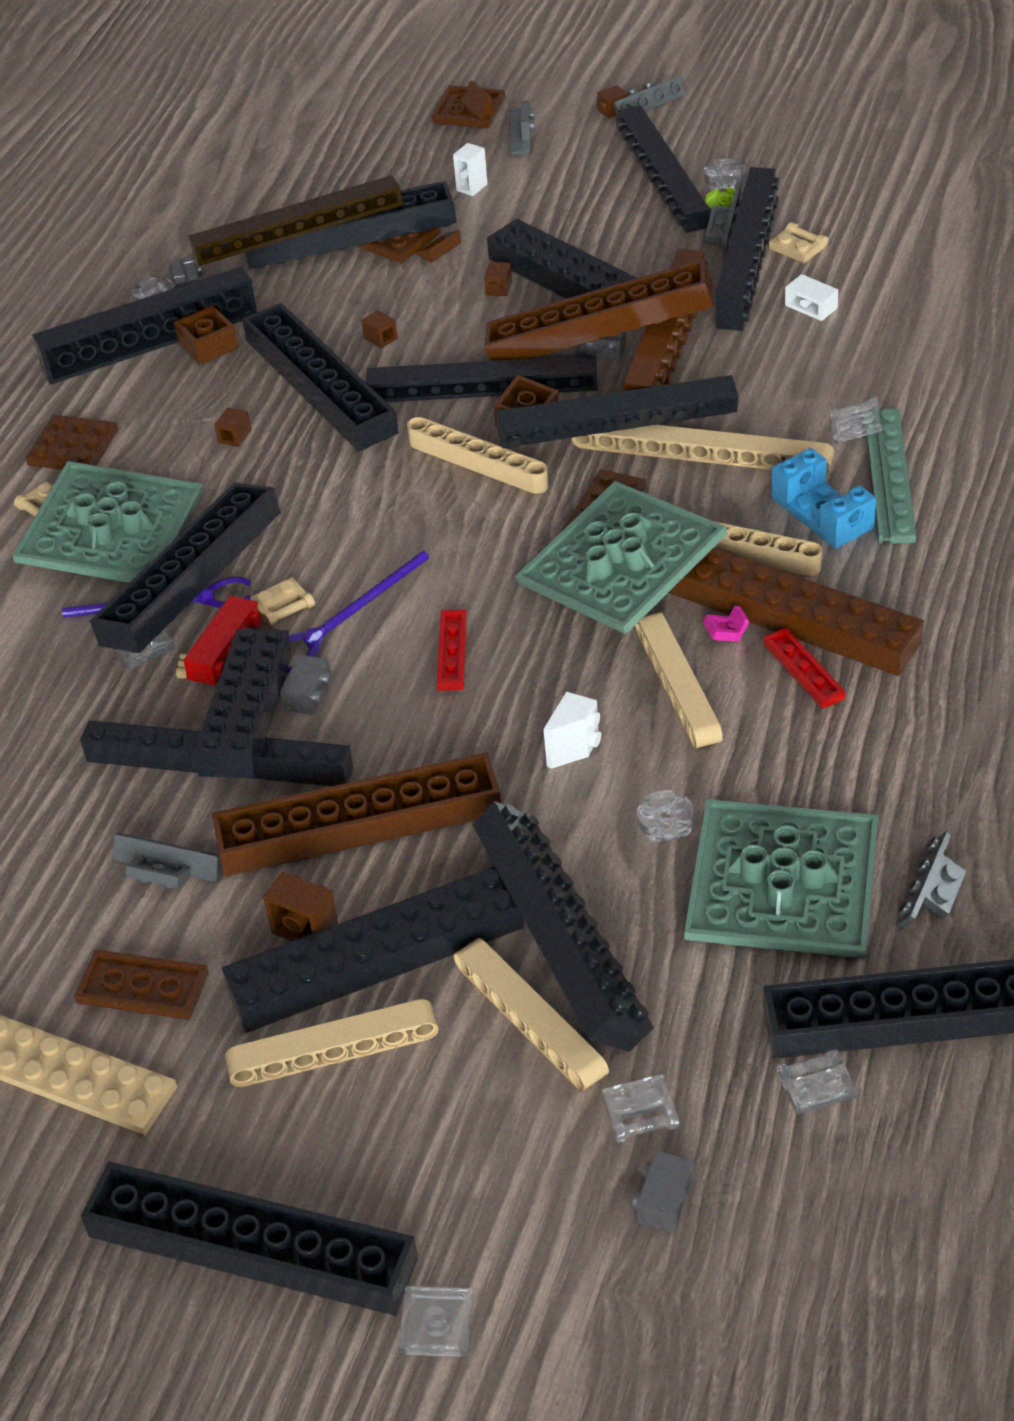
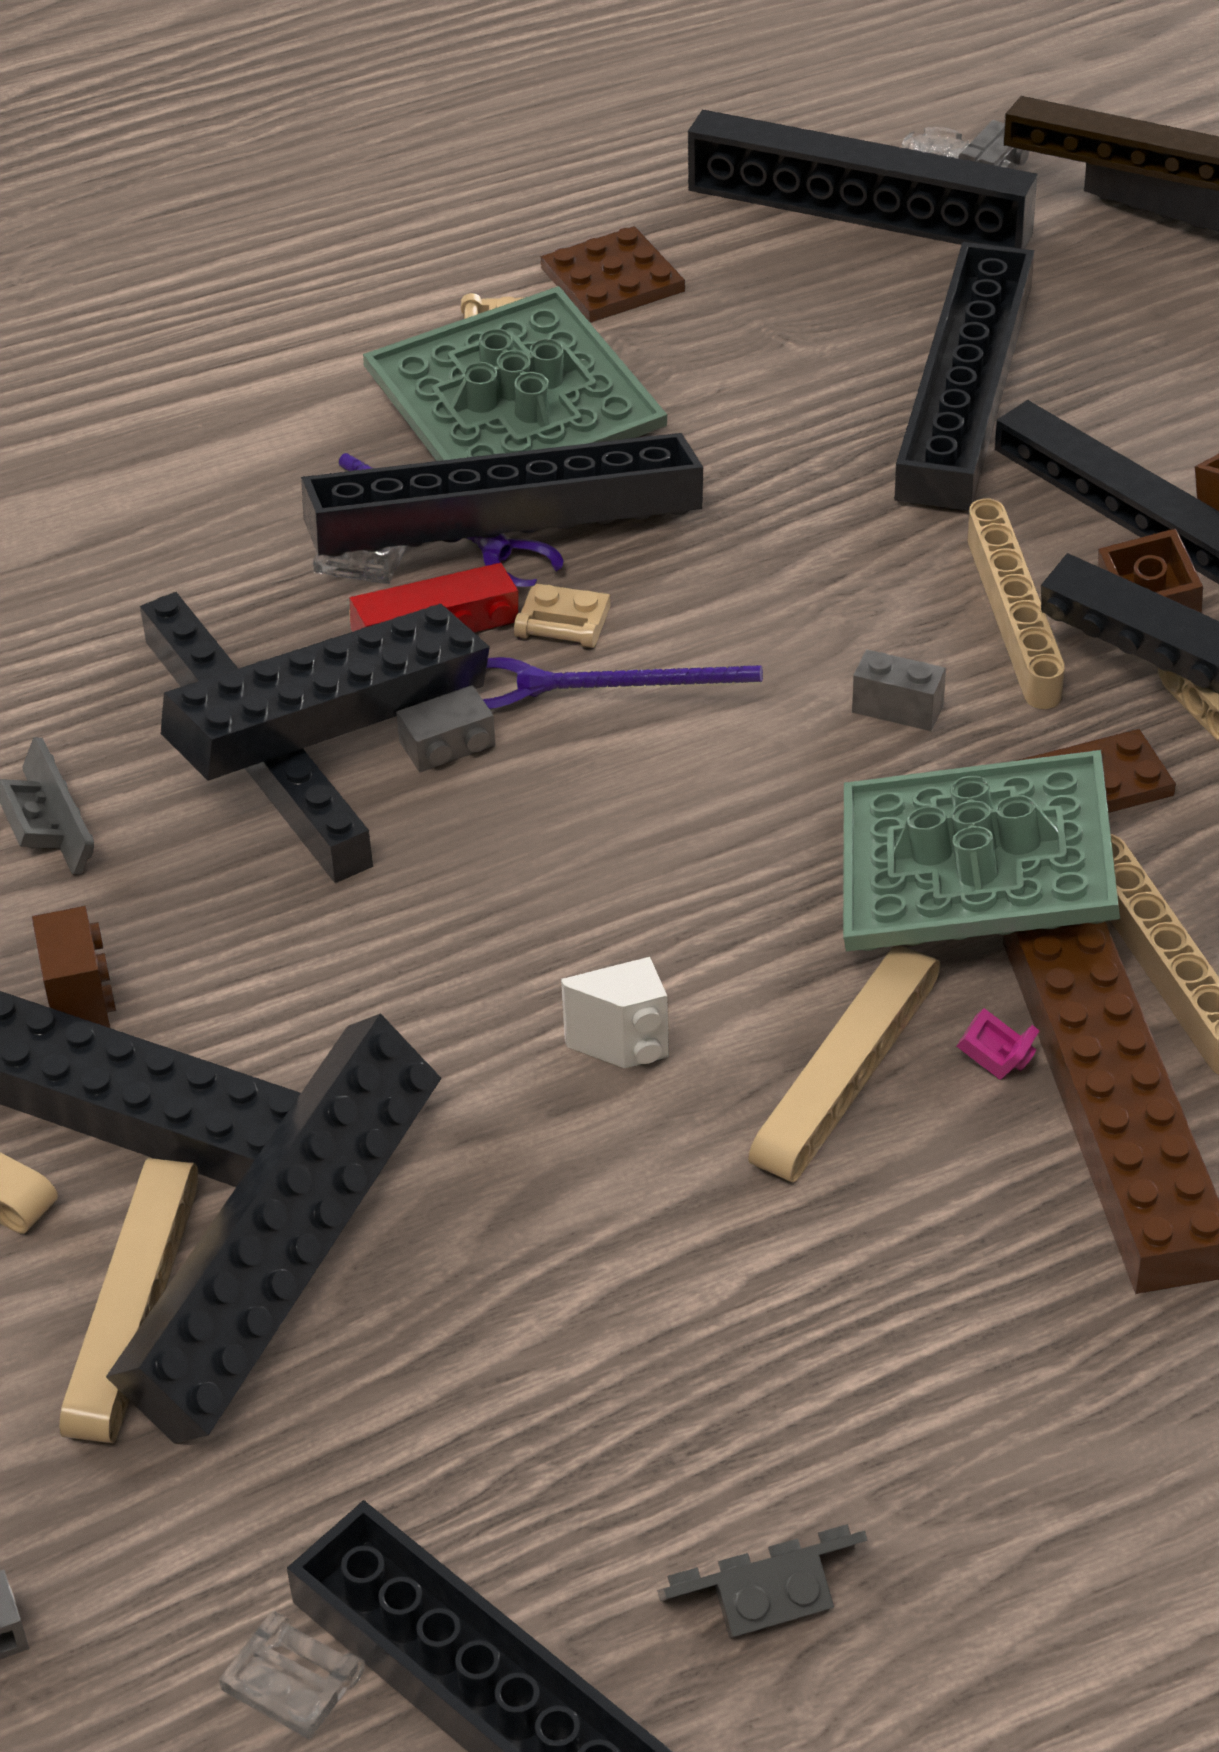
camera: 45 degrees right, 0 degrees up
(206, 335) = (911, 238): reddish brown brick -> none
(233, 427) = (794, 370): reddish brown brick -> none
(354, 814) = (285, 918): reddish brown brick -> none
(379, 329) = (1124, 364): reddish brown brick -> none
(452, 650) = (651, 815): red plate -> none
(483, 523) = (898, 690): none -> flat silver brick
(638, 1099) = (88, 1498): clear plate -> none
(669, 828) = (595, 1234): clear plate -> none
(783, 878) = (613, 1409): sand green plate -> none
(804, 668) = (1018, 1178): red plate -> none

